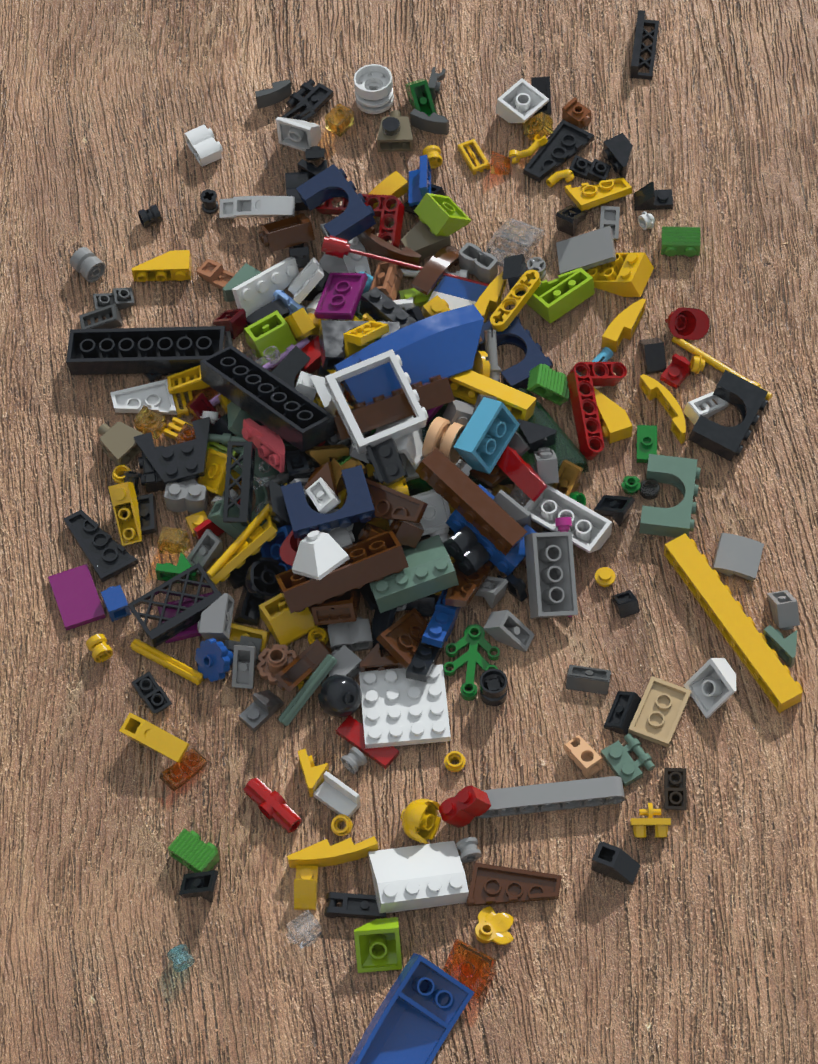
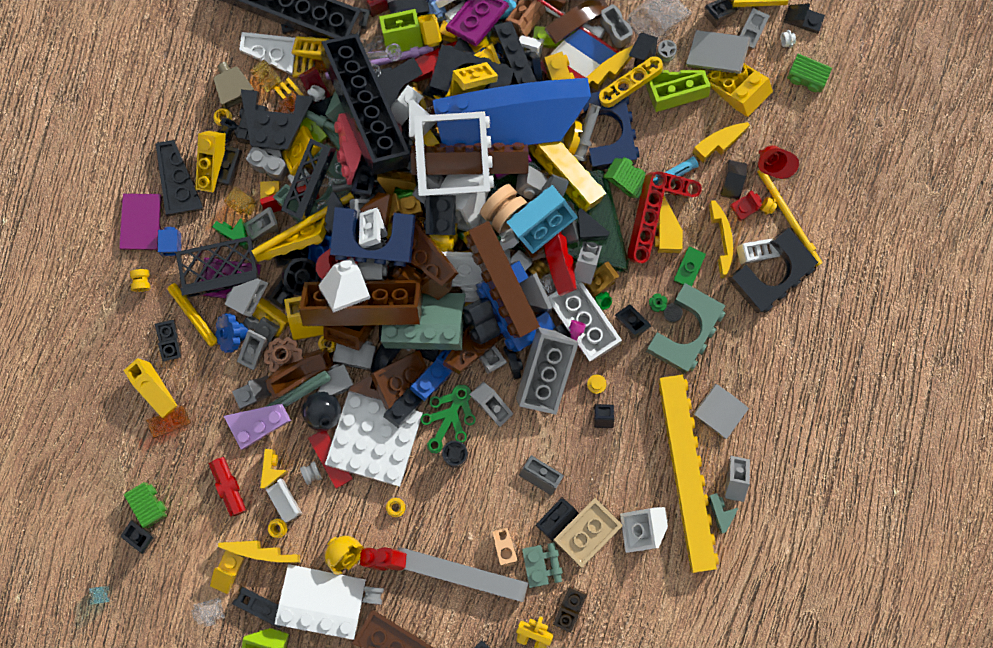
camera: 20 degrees right, 20 degrees up
(277, 734) = (256, 424): none -> lavender wing

